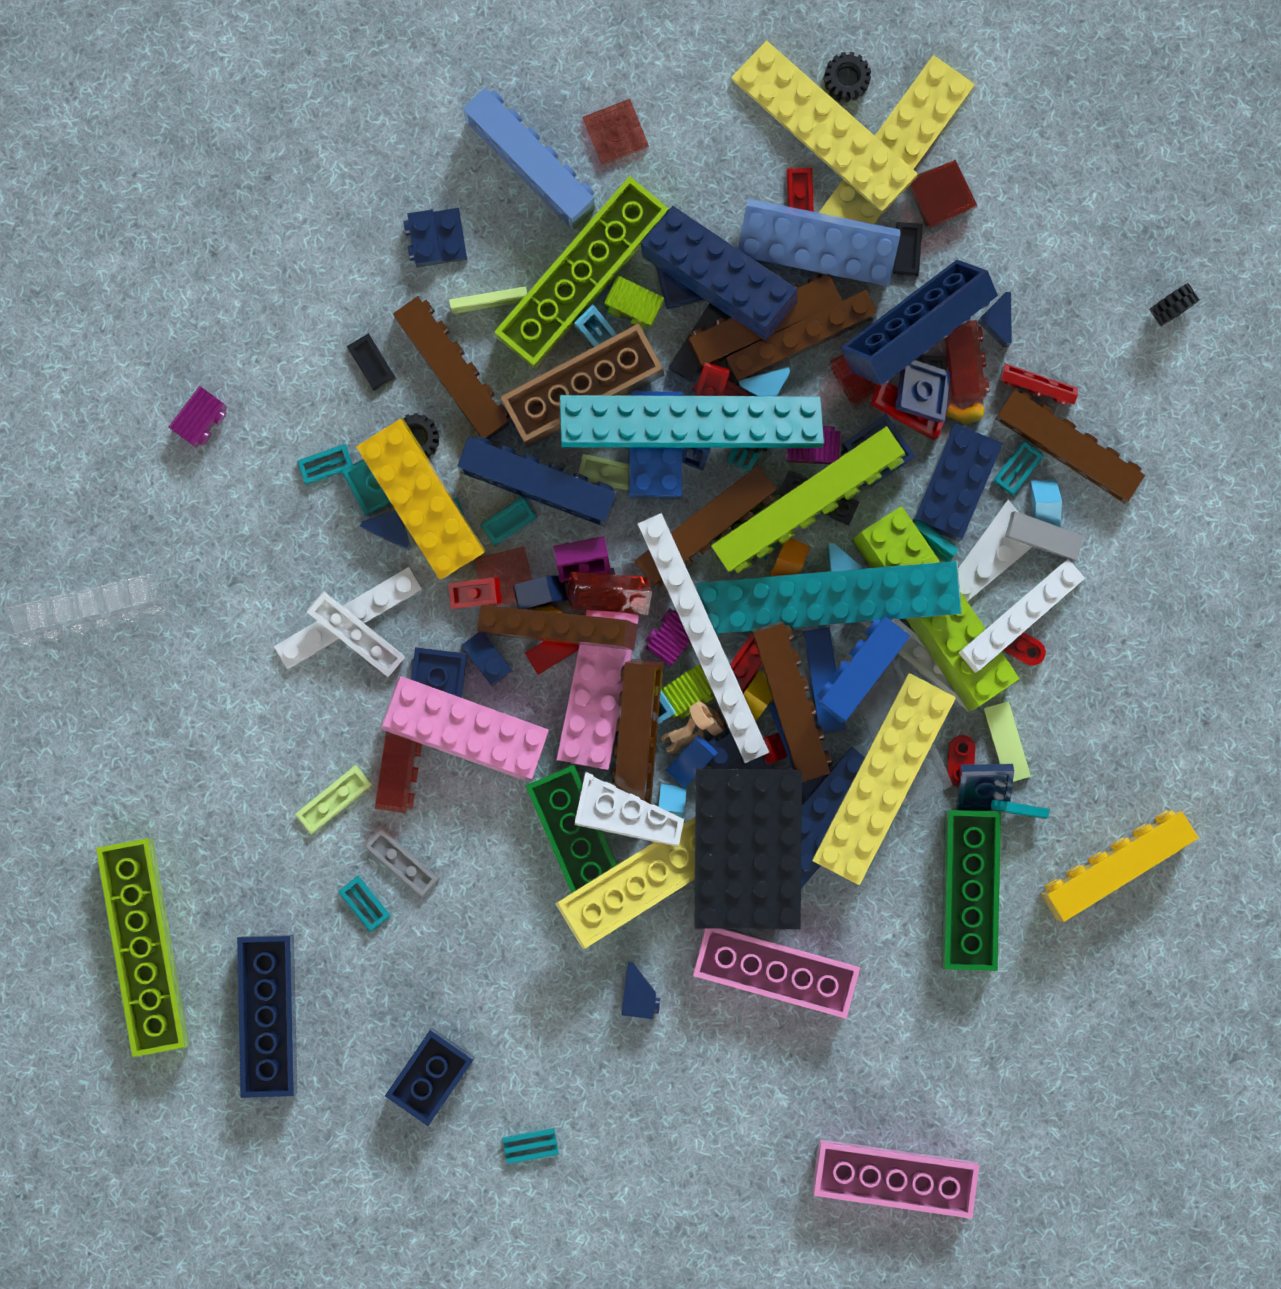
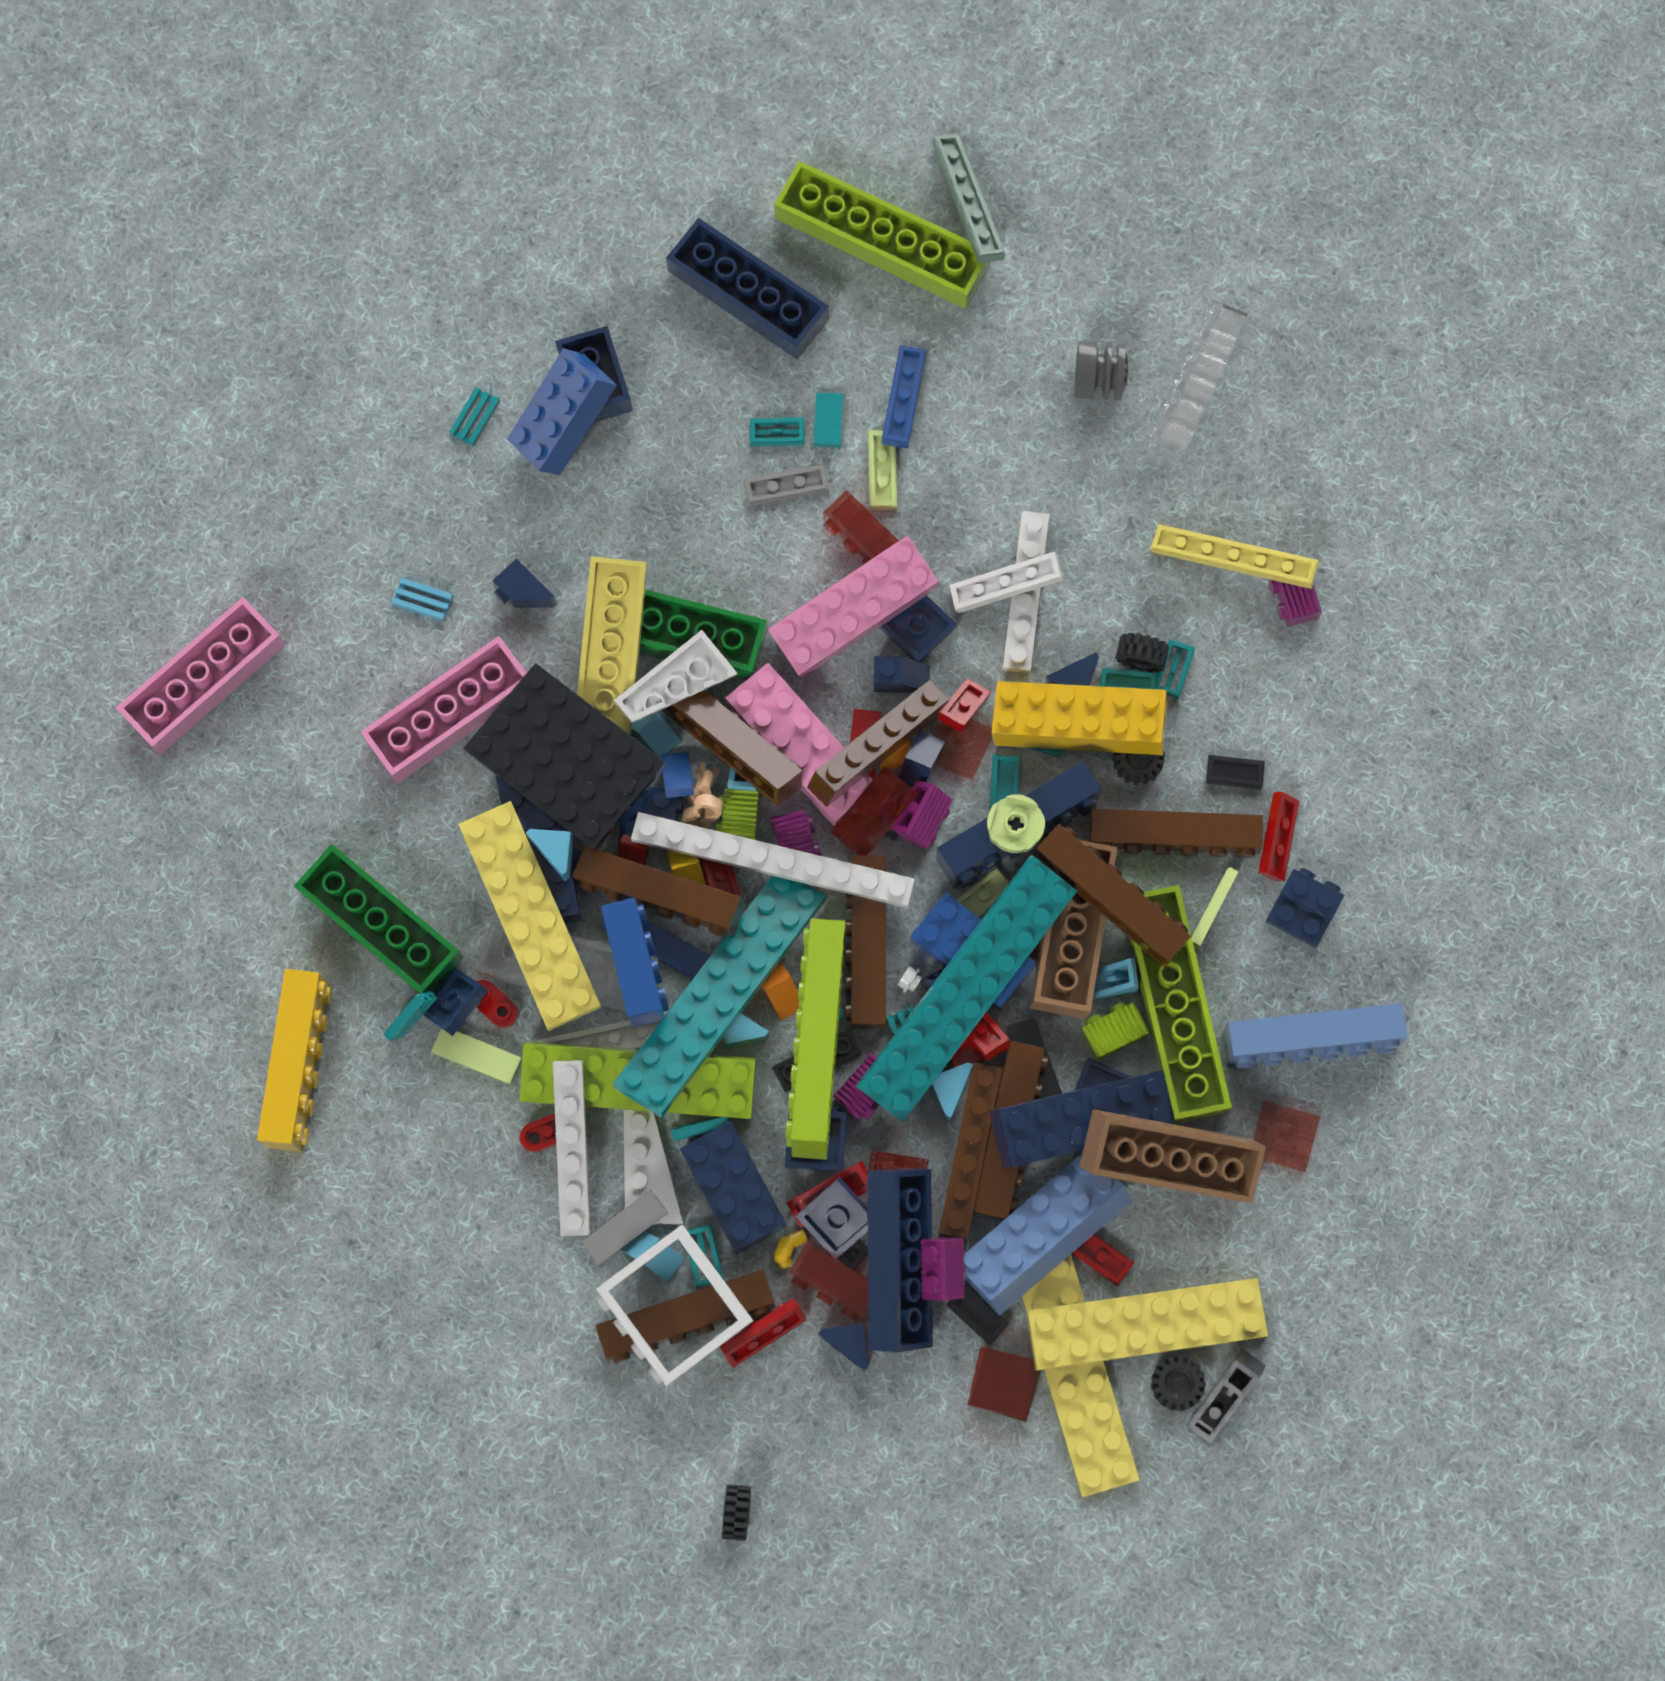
camera: 135 degrees right, 10 degrees down
(62, 902) = (968, 198): none -> sand green tile
(129, 689) = (1100, 370): none -> dark grey wheel
(204, 481) = (1235, 556): none -> light yellow tile
(263, 828) = (903, 397): none -> blue tile
(325, 872) = (828, 420): none -> teal tile
(333, 492) = (1142, 652): none -> black tyre
(397, 293) = (1278, 836): none -> red plate
(483, 1071) = (561, 412): none -> blue brick
(542, 369) = (1112, 895): none -> reddish brown brick
(551, 462) = (1006, 810): none -> yellowish green plate
(699, 188) = (1172, 1156): none -> medium nougat brick
(709, 476) = (910, 979): none -> white plate
(711, 1086) = (424, 589): none -> medium azure tile
(822, 798) = (555, 847): none -> medium azure slope
(828, 37) = (1226, 1395): none -> black slope
(902, 288) = (942, 1268): none -> magenta brick
(1033, 443) = (625, 1325): none -> white window

